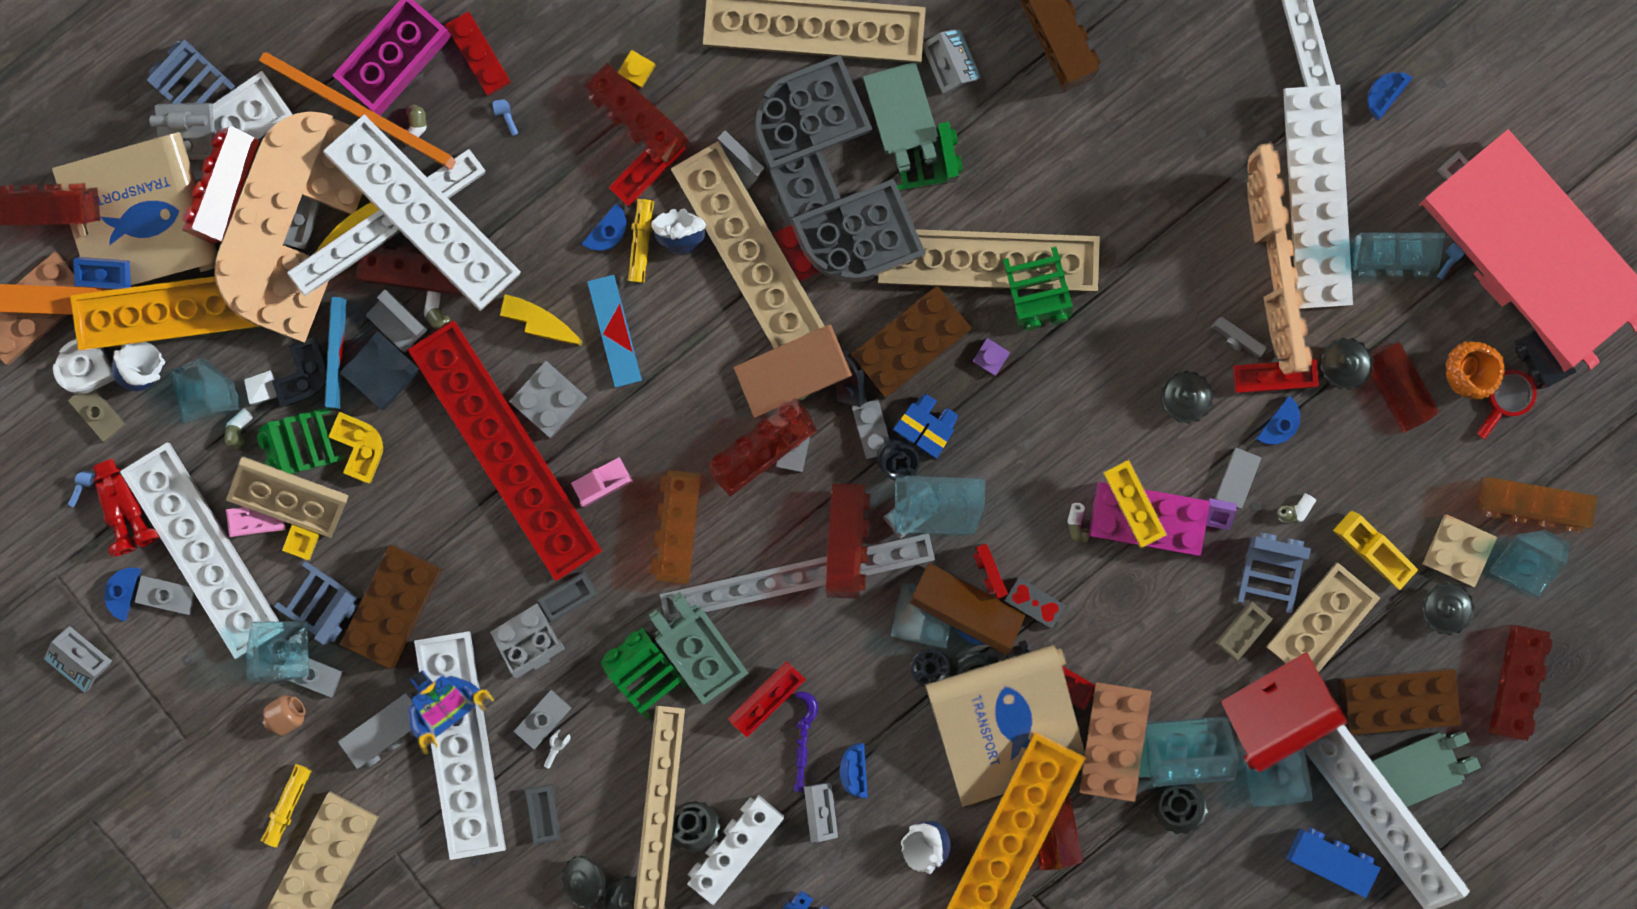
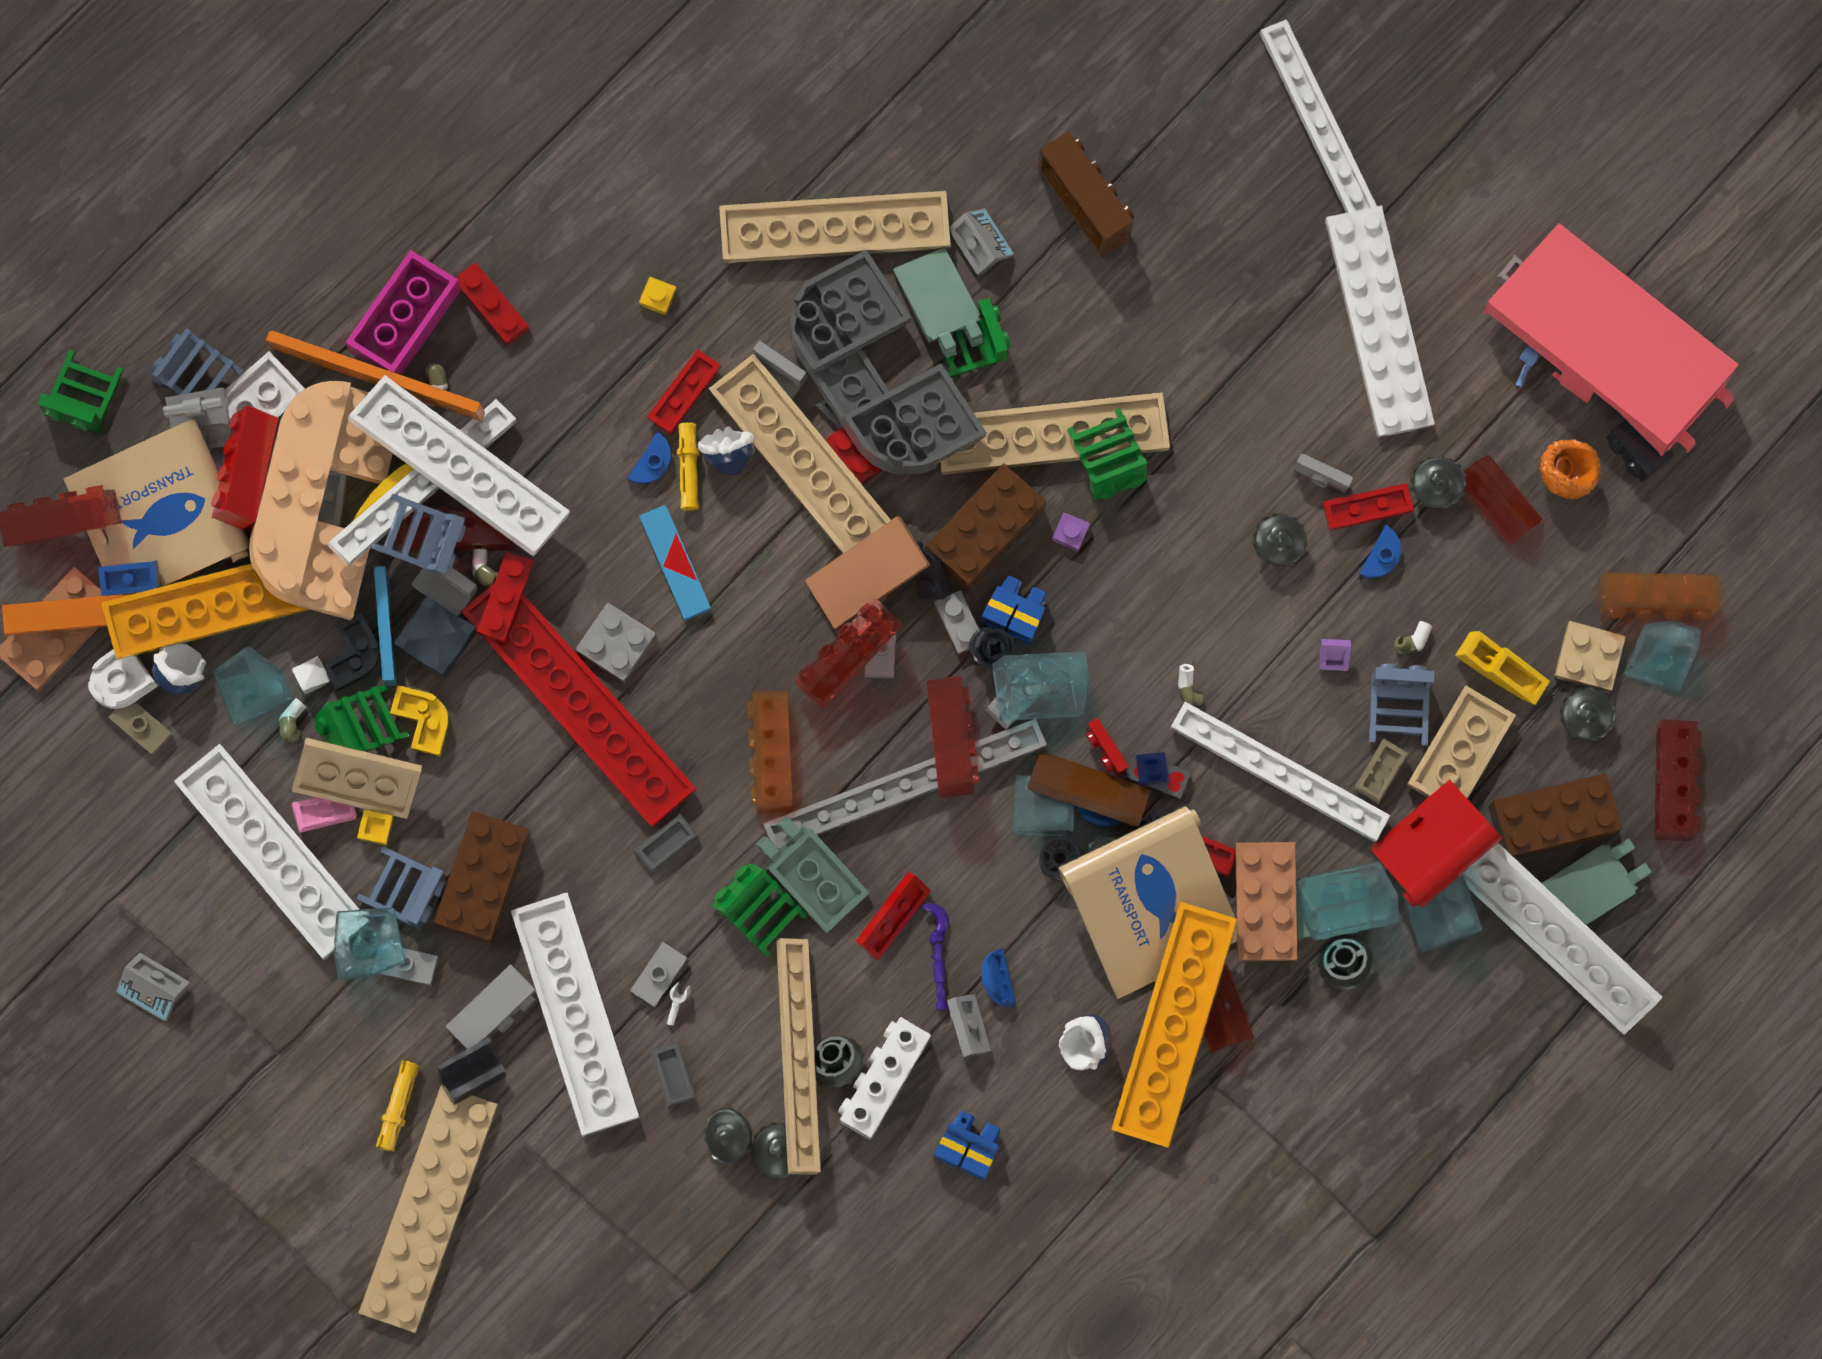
camera: 15 degrees left, 10 degrees down
(78, 105) = (77, 413): none -> green plate
(82, 479) = (134, 796): medium blue hand -> none
(117, 503) = (177, 814): red piece -> none
(120, 591) = (189, 907): blue plate -> none
(165, 595) = (238, 904): light grey plate -> none
(283, 715) = (382, 1010): nougat head -> none
(356, 786) = (470, 1071): none -> black panel
(392, 285) = (438, 542): none -> sand blue plate
(441, 705) = (552, 967): torso -> none
(450, 343) = (505, 597): none -> red plate
(502, 107) = (524, 353): medium blue hand -> none
(527, 641) = (631, 894): light grey plate -> none
(537, 320) = (595, 562): yellow slope -> none
(601, 482) = (684, 718): bright pink panel -> none
(636, 113) = (665, 337): clear red brick -> none
(1029, 597) = (1151, 768): none -> clear blue tile
(1134, 503) = (1244, 650): yellow plate -> none
(1149, 617) = (1280, 772): none -> white plate
(1180, 516) = (1262, 669): dark pink brick -> none
(1238, 477) = (1348, 614): light grey tile -> none
(1268, 226) = (1330, 344): light nougat plate -> none
(1333, 861) = (1516, 995): blue brick -> none
(1385, 92) = (1429, 208): blue plate -> none
(1396, 253) = (1469, 363): clear light blue slope -> none
(1511, 399) = (1613, 495): piece -> none

